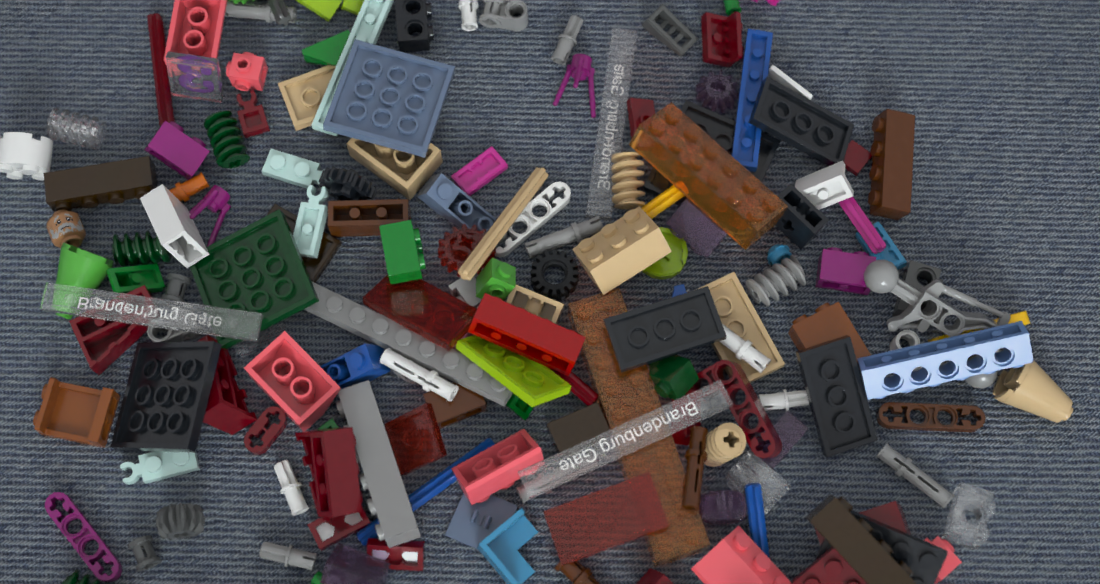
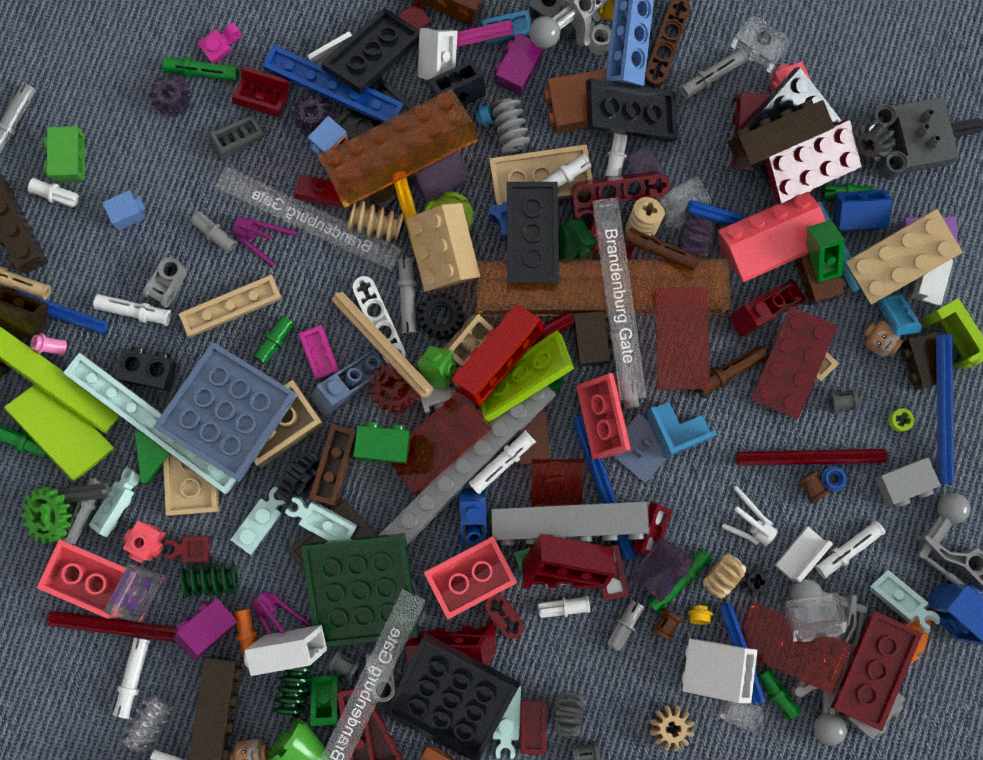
camera: 75 degrees left, 10 degrees up
(106, 103) = (128, 688): none -> white pin
(160, 492) = (533, 727): none -> dark red plate
(280, 37) = (112, 507): none -> light aqua plate
(478, 126) = (273, 340): none -> green pin
(499, 78) = (230, 306): none -> tan plate
(696, 107) = (327, 136): none -> medium blue brick

